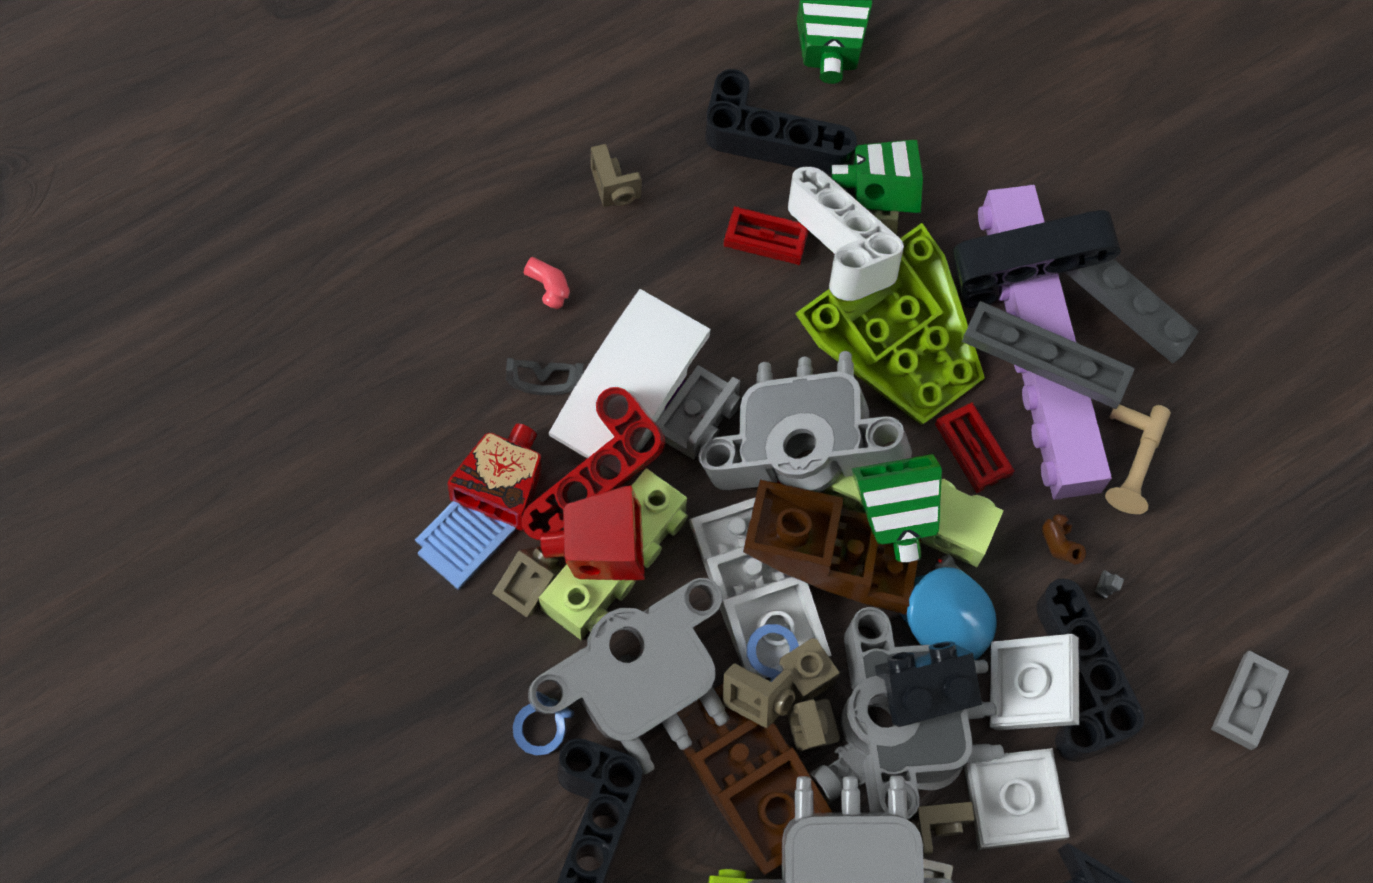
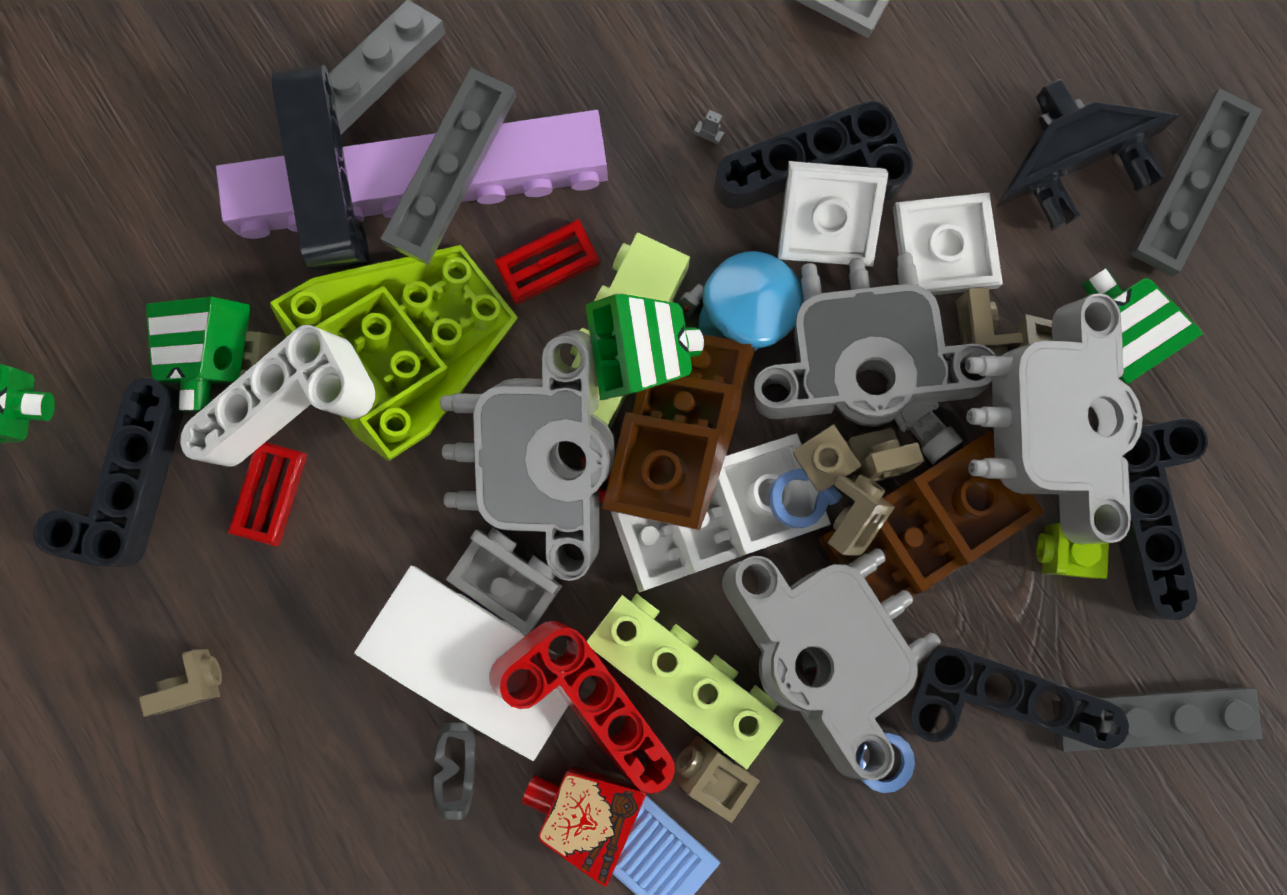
camera: 85 degrees left, 15 degrees up
(552, 279) = (327, 758): coral arm -> none
(600, 537) = (684, 699): red torso -> none
(930, 683) = (848, 325): black bracket -> none
(1061, 548) = (667, 177): reddish brown arm -> none
(1128, 496) = (523, 61): tan piece -> none

